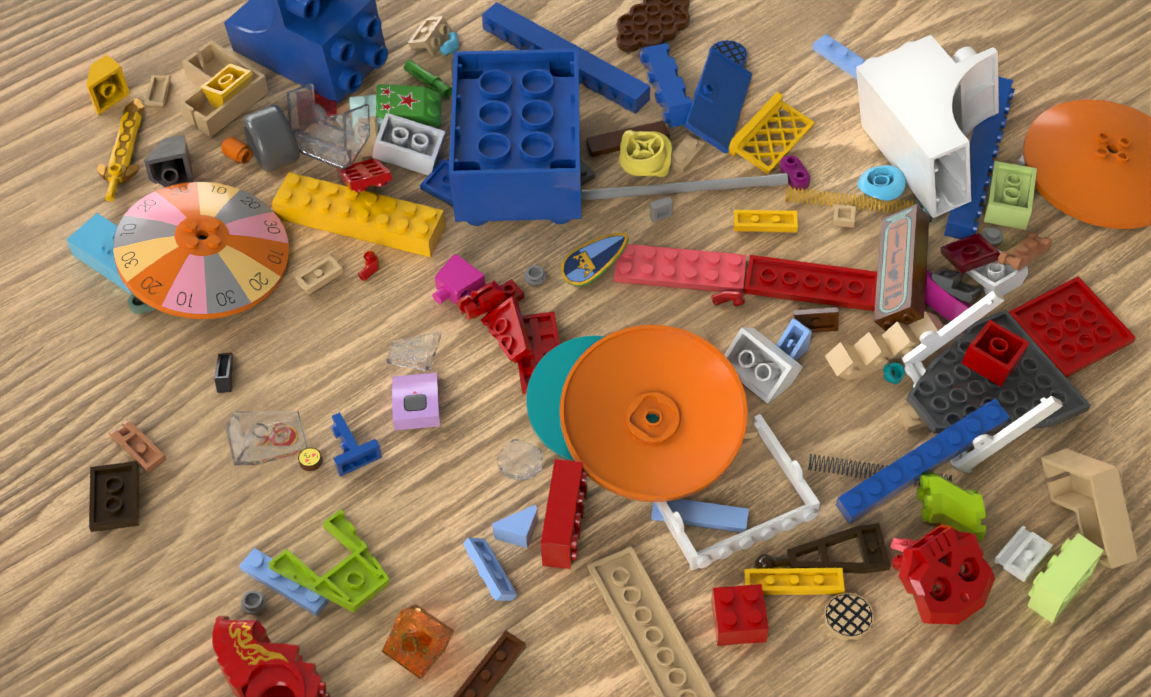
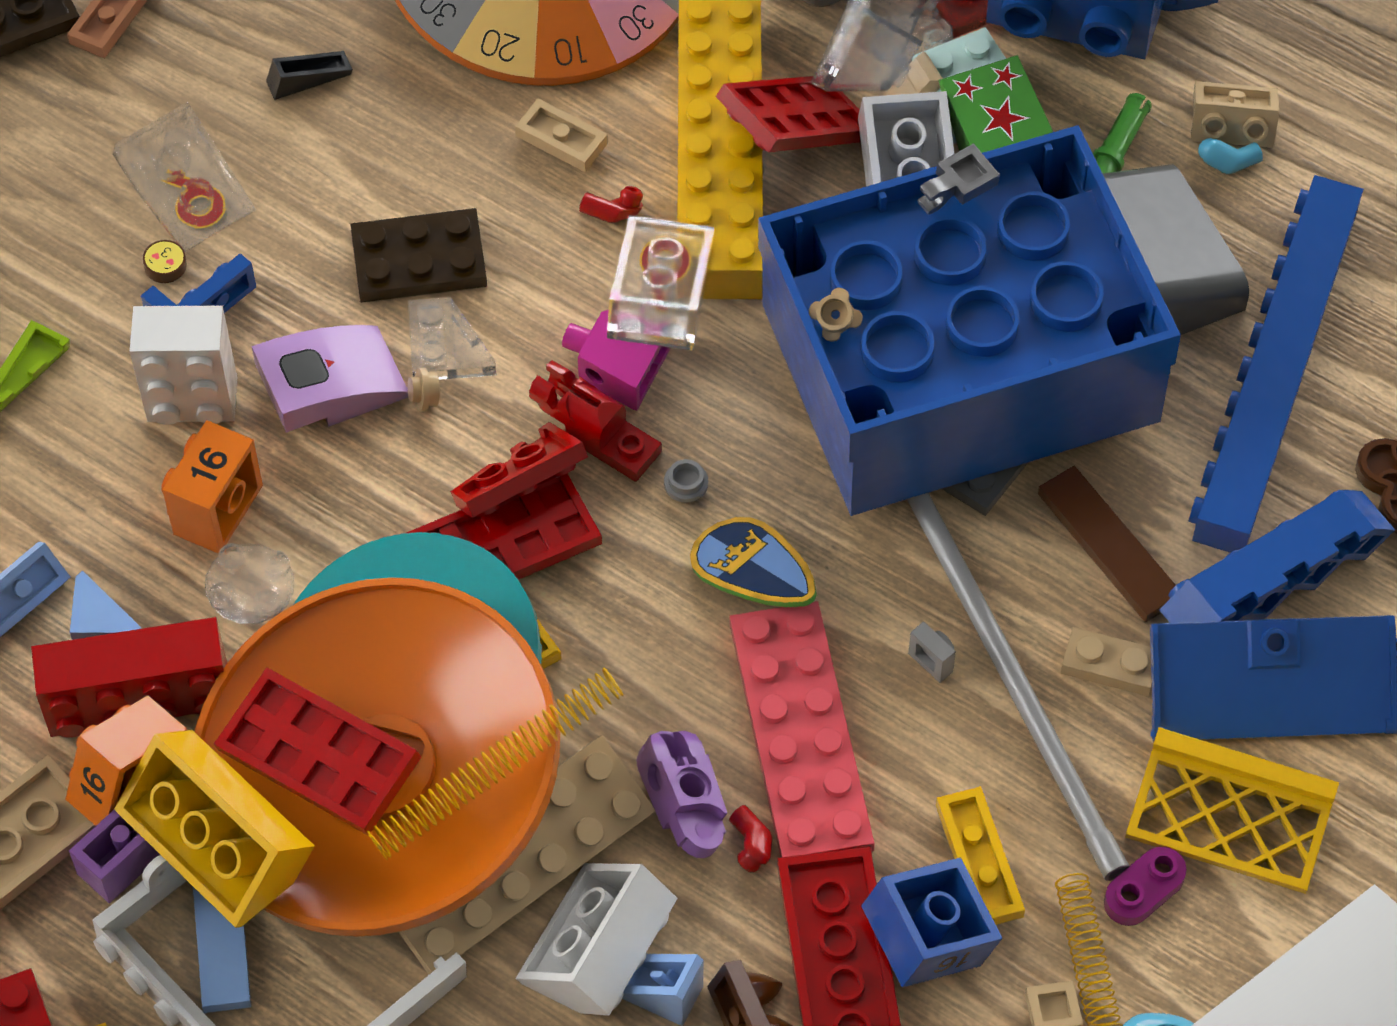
camera: 70 degrees right, 5 degrees up
(359, 350) = (418, 255): none -> dark brown plate
(394, 447) = (183, 363): none -> white brick
(438, 244) = (660, 283): none -> clear slope
(441, 363) = (424, 389): none -> tan plate
(466, 93) = (960, 175): none -> flat silver plate
(466, 457) = (212, 486): none -> orange brick
(513, 156) = (839, 302): none -> tan plate
(614, 523) = (110, 755): none -> orange brick
(645, 153) = (1065, 581): light yellow piece -> none
(648, 429) = (317, 751): none -> red plate
(653, 539) = (111, 856): none -> medium lavender brick
(671, 484) = (212, 826): none -> yellow slope
(698, 312) = (683, 790): none -> medium lavender piece
(714, 412) = (607, 675): none -> yellow piece
(797, 239) = (931, 922): none -> blue brick

